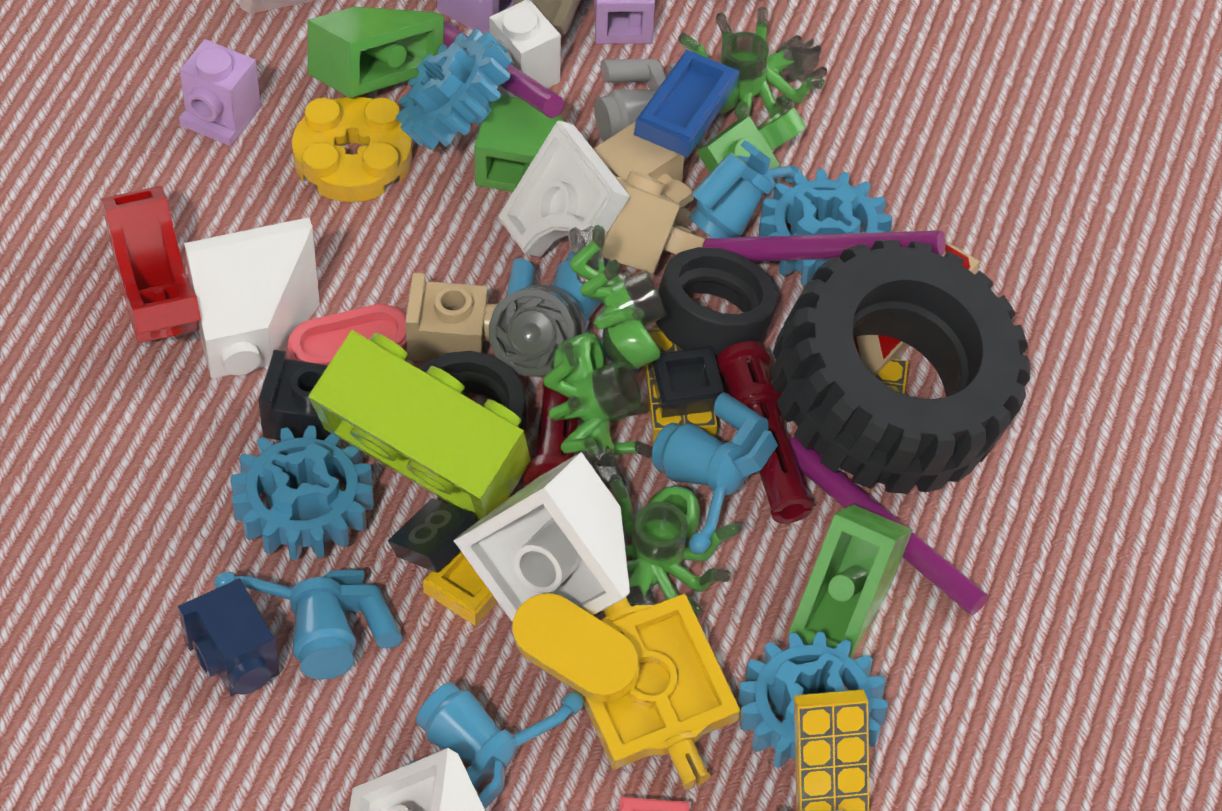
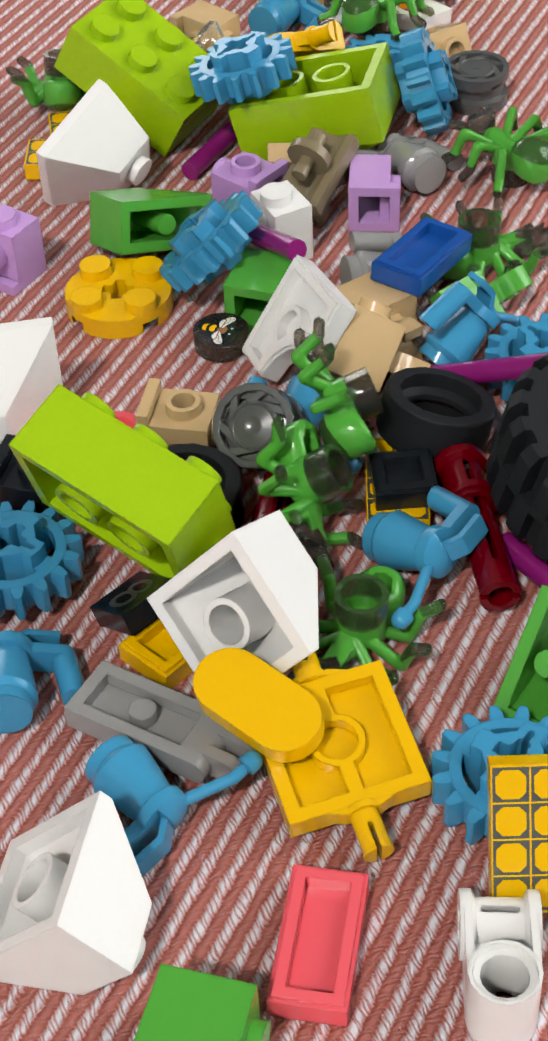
camera: 10 degrees right, 10 degrees down
(446, 649) = (159, 718): none -> light grey hinge
(473, 200) = (220, 337): none -> clear smoke tile

